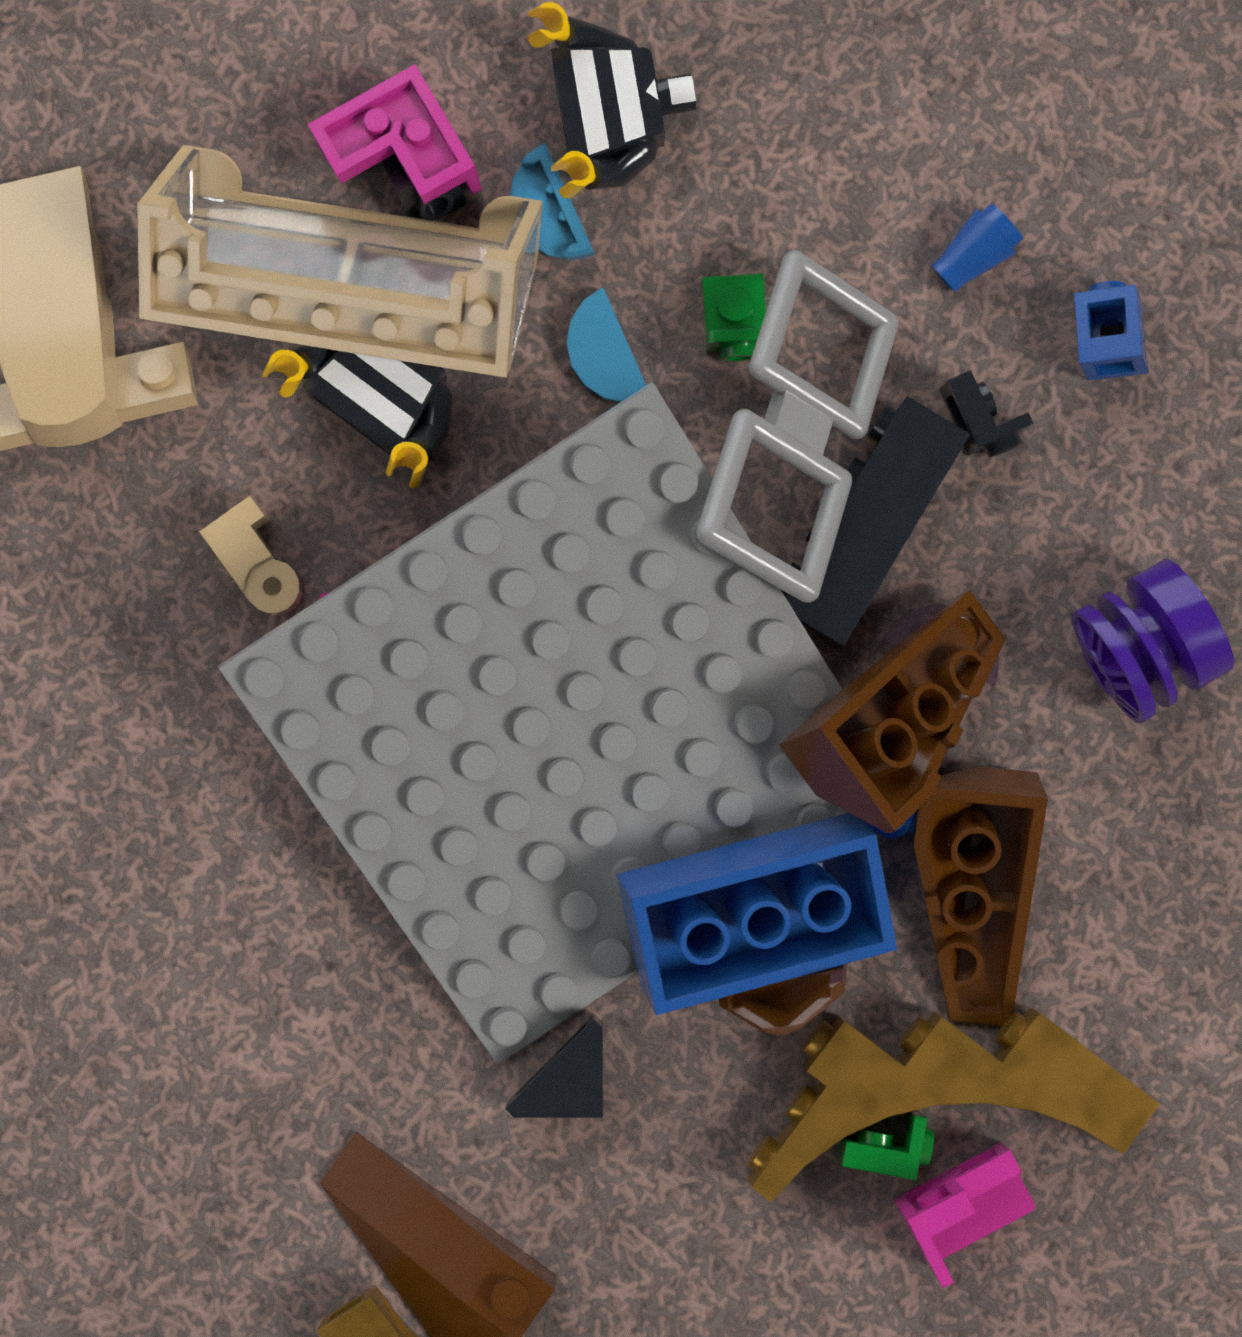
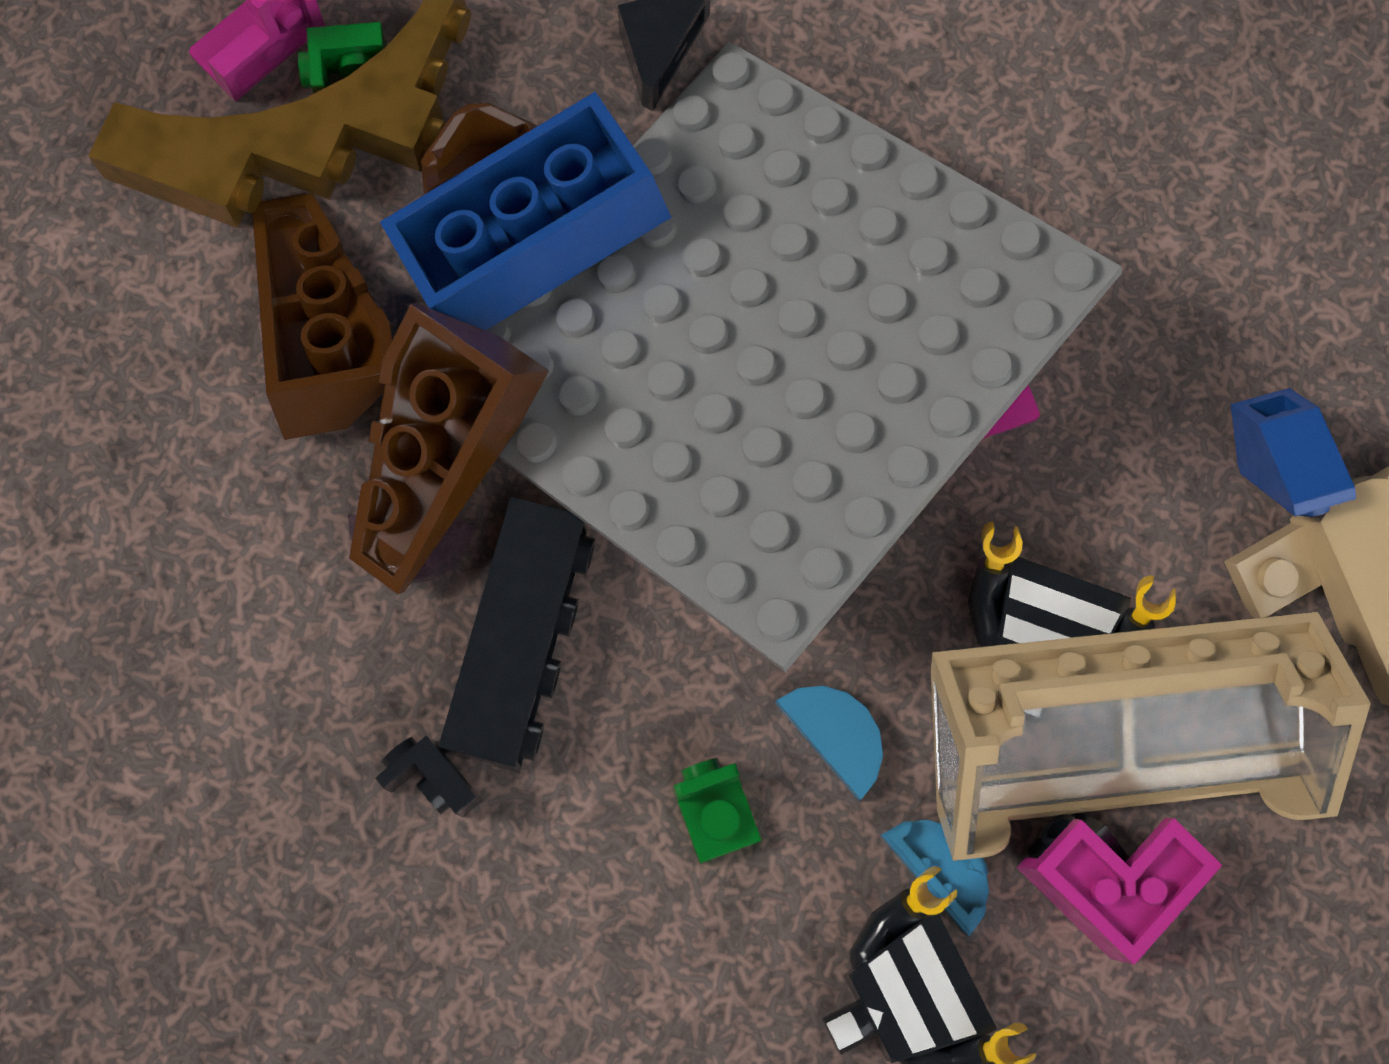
camera: 165 degrees right, 10 degrees down
(105, 475) = (1290, 453): none -> blue slope
(250, 561) = (1116, 423): tan leg -> none
(798, 427) = (619, 696): light grey bar -> none
(978, 247) = (480, 960): blue cone -> none
(1114, 354) = (331, 884): blue brick -> none
(1161, 636) = (198, 589): dark purple wheel -> none

